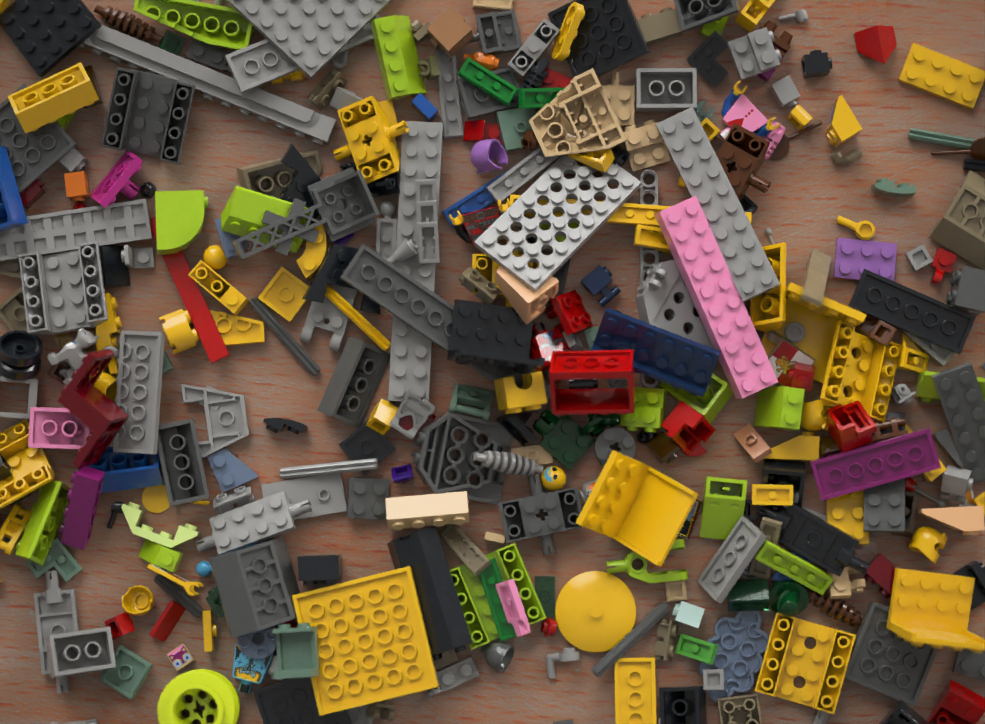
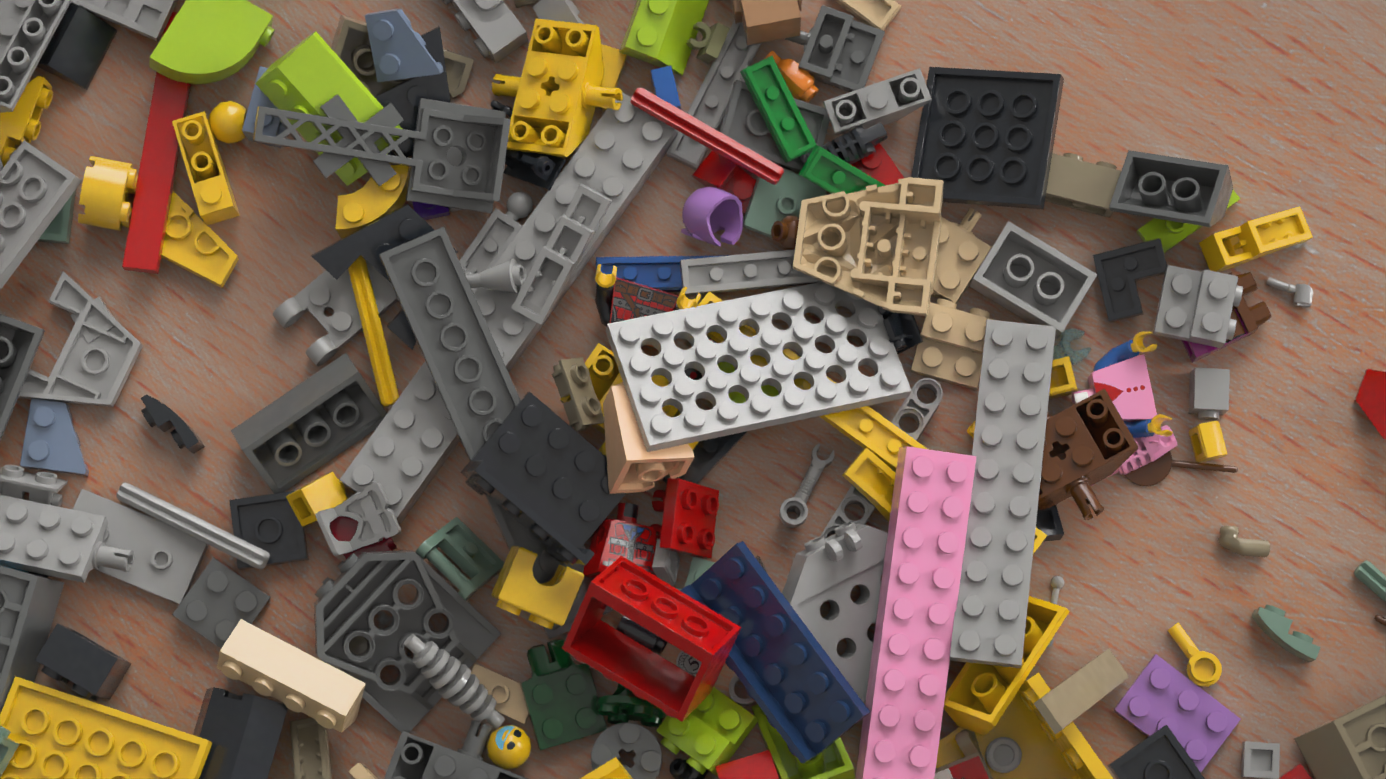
camera: 35 degrees right, 5 degrees down
(138, 258) = (118, 54): light grey bracket -> none
(279, 168) = (397, 48): none -> sand blue wing
(284, 294) = (292, 235): yellow plate -> none
(284, 336) = (255, 296): dark grey axle -> none
(402, 474) = (293, 601): dark purple slope -> none
(461, 117) = (707, 136): none -> red axle
(515, 426) = (501, 632): black slope -> none
(568, 31) = (941, 108): yellow plate -> none
(597, 282) = (757, 498): dark blue brick -> none
(598, 160) = (867, 318): yellow slope -> none
(619, 272) = (798, 502): none -> light grey brick
(816, 64) = (1281, 379): black brick -> none
(841, 124) = (1265, 491): yellow slope -> none

